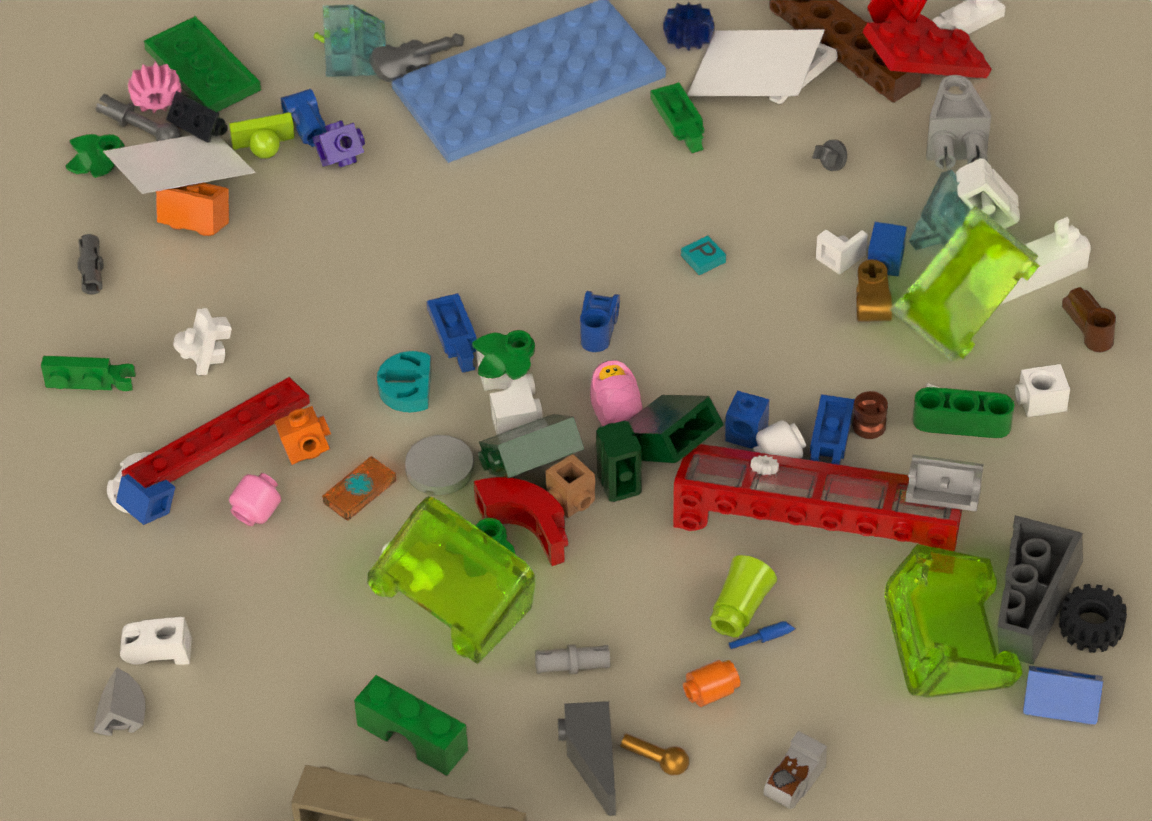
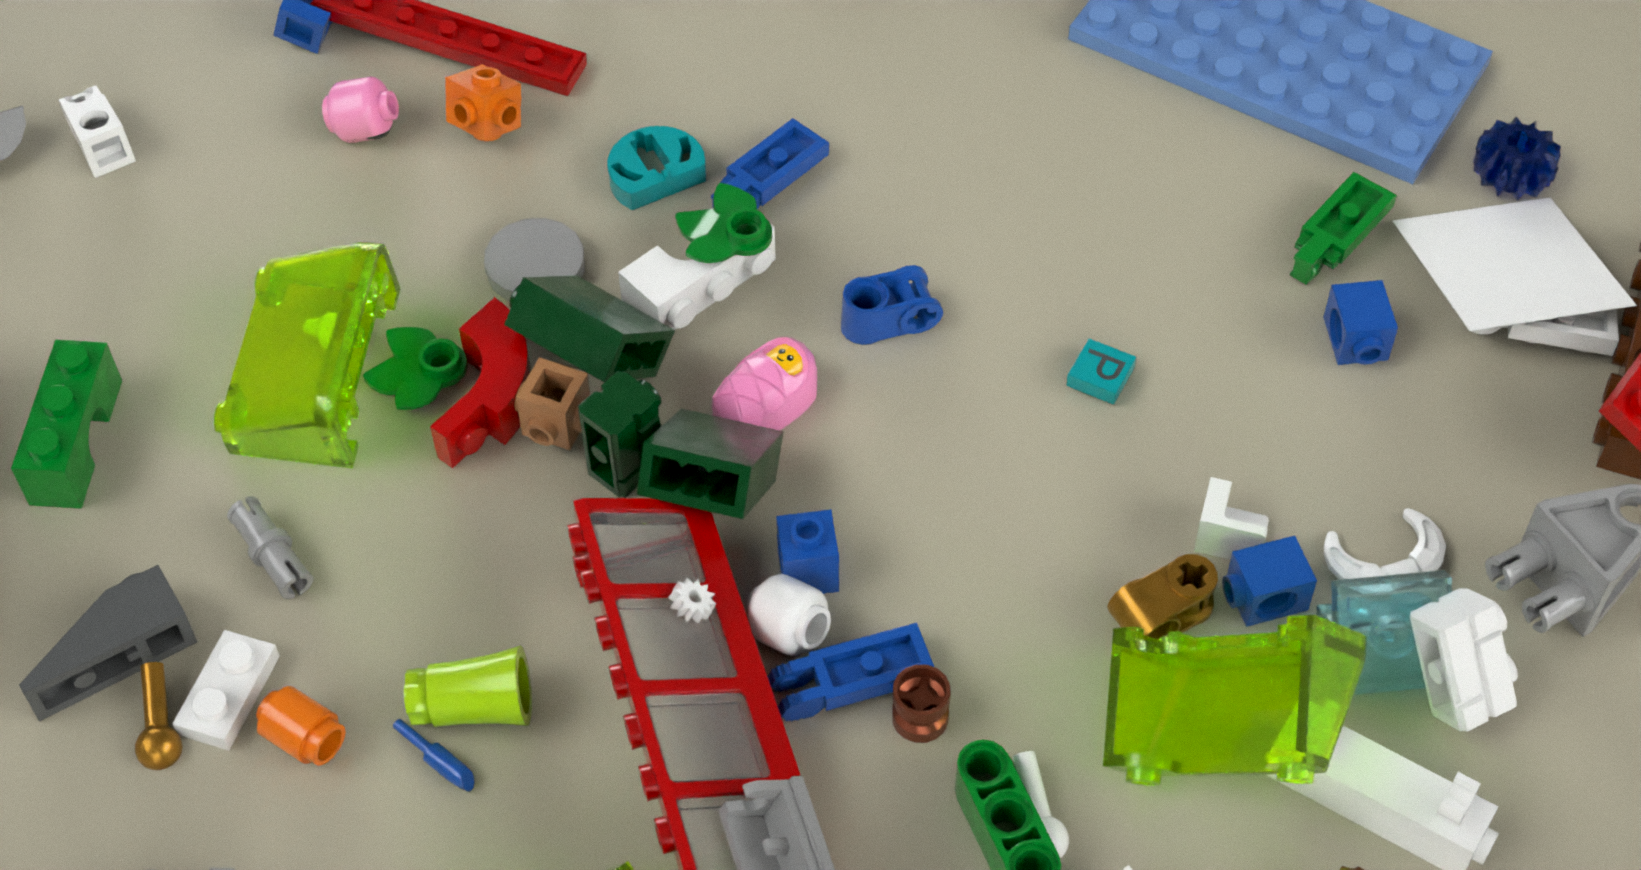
camera: 60 degrees right, 5 degrees up
(359, 488) = (449, 202): clear orange tile -> none
(656, 714) = (226, 690): none -> white plate
(752, 138) = (1360, 322): none -> blue brick
(832, 155) = (1406, 431): dark grey plate -> none
(908, 190) = (1425, 557): none -> white piece

